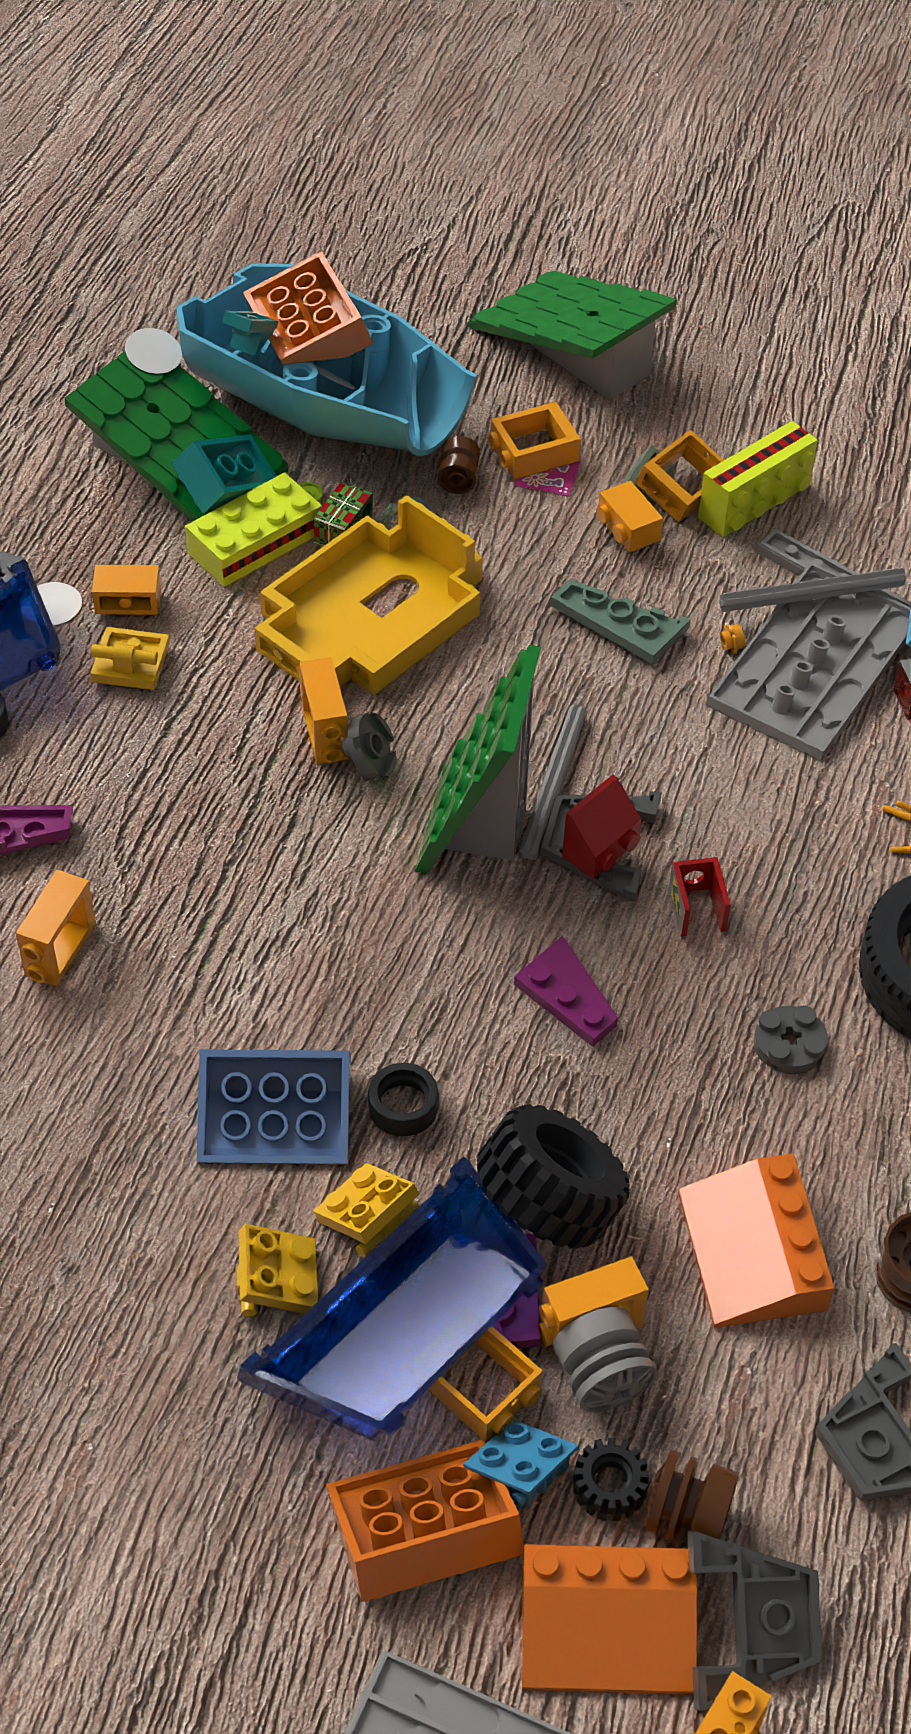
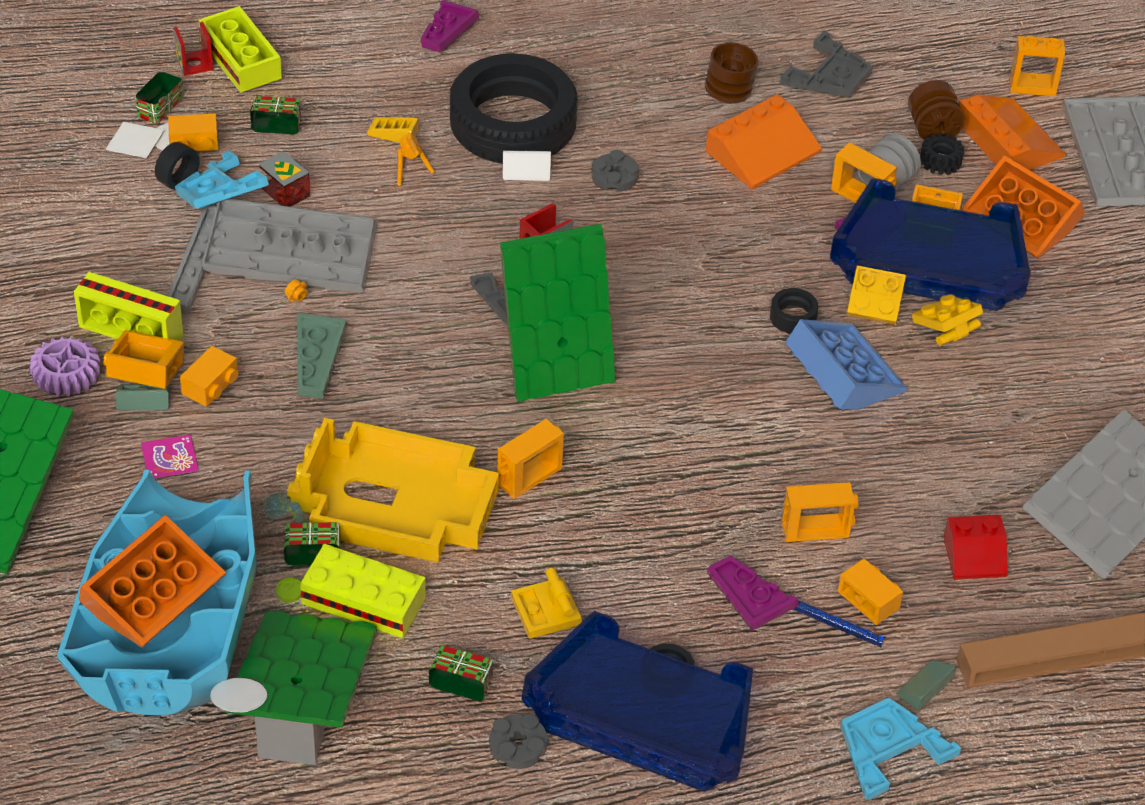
camera: 120 degrees left, 5 degrees down
(61, 601) = (507, 695): white sticker -> none
(101, 548) = (461, 673): none -> piece
(132, 587) = (484, 633): light orange brick -> none
(222, 470) = (329, 617): teal slope -> none
(249, 330) = (208, 595): teal slope -> none
(369, 746) = (552, 416): dark grey plate -> none
(458, 465) = (201, 491): reddish brown wheel -> none
(522, 1460) = (966, 177): dark azure hinge -> none
(539, 458) = (136, 446): light orange window -> none
(552, 782) = (463, 341): light grey axle -> none
(553, 1176) = (811, 203): black tyre -> none
(567, 992) = (655, 275): magenta wing -> none
(721, 422) = (65, 366): none -> lavender gear
(772, 1615) = (969, 79): dark grey wing -> none
(812, 589) = (235, 252): light grey axle -> none
(845, 942) = (526, 165): none -> white slope

